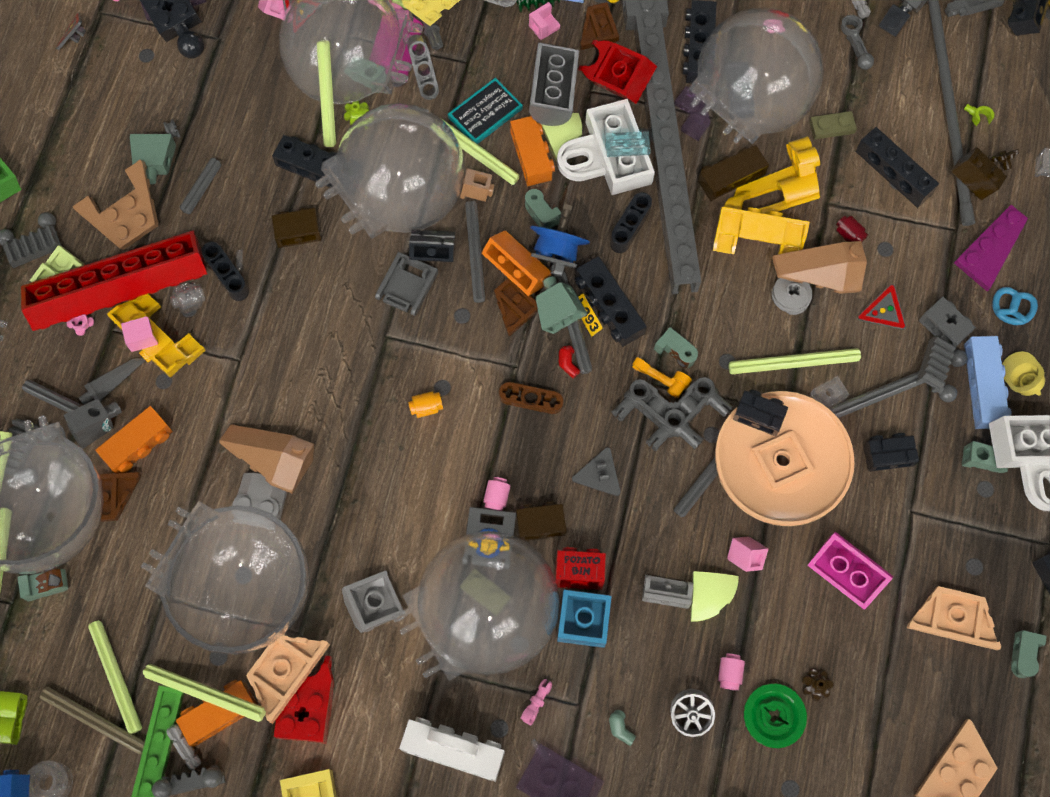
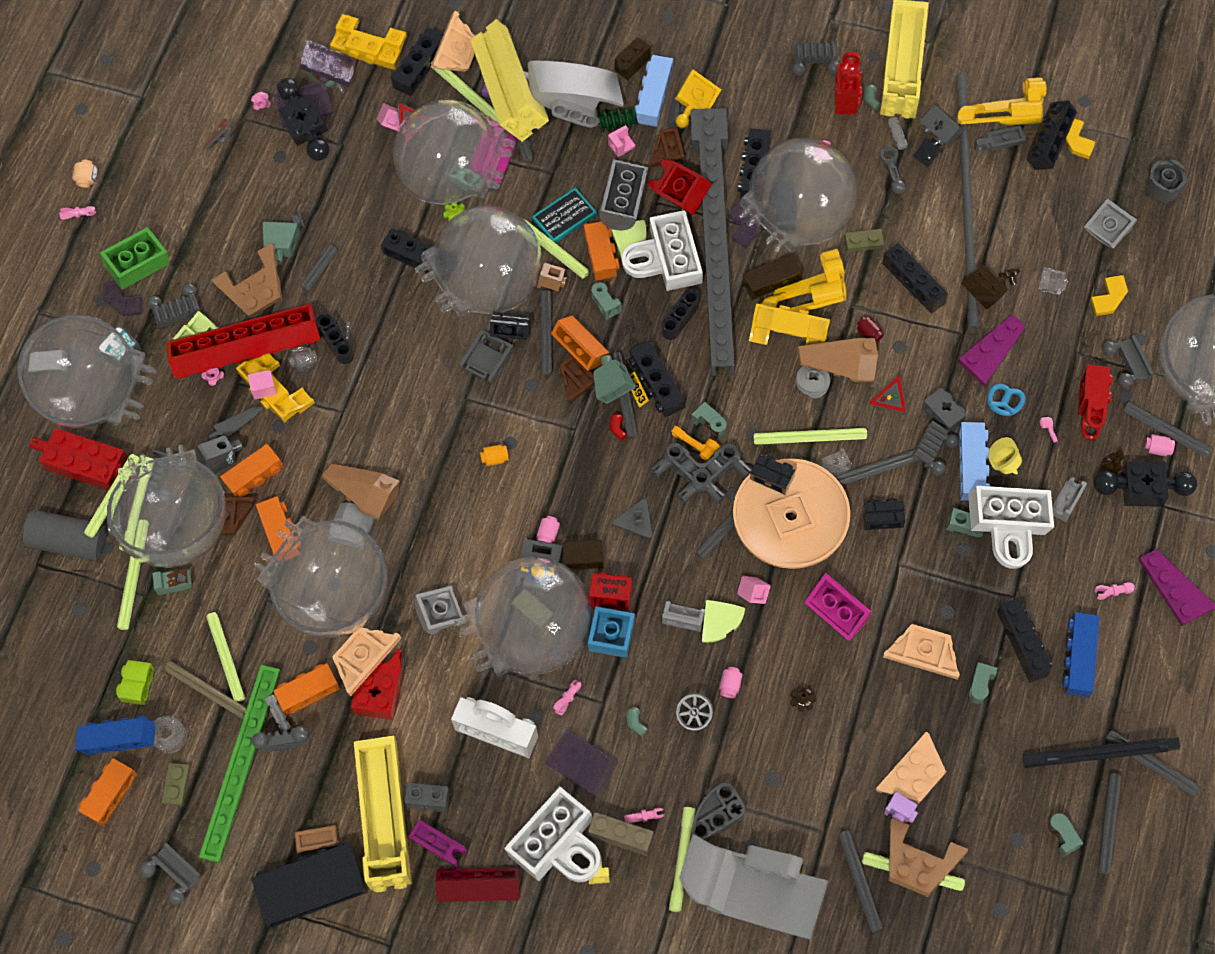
camera: 10 degrees right, 5 degrees down
(50, 396) = (183, 432): dark grey axle -> none
(164, 500) = (273, 518): none -> orange brick
(204, 692) = (297, 670): yellowish green axle -> none
(296, 227) = (397, 305): dark brown brick -> none
(326, 93) = (429, 195): yellowish green axle -> none
(423, 57) = (512, 184): dark grey beam -> none
(513, 400) = (598, 453): reddish brown beam -> none
(557, 242) = (615, 327): blue piece -> none
(557, 266) = (614, 345): dark grey piece -> none
(627, 140) = (681, 245): clear light blue tile -> none
(791, 711) = (762, 706): green gear -> none
(987, 111) = (990, 234): lime piece -> none

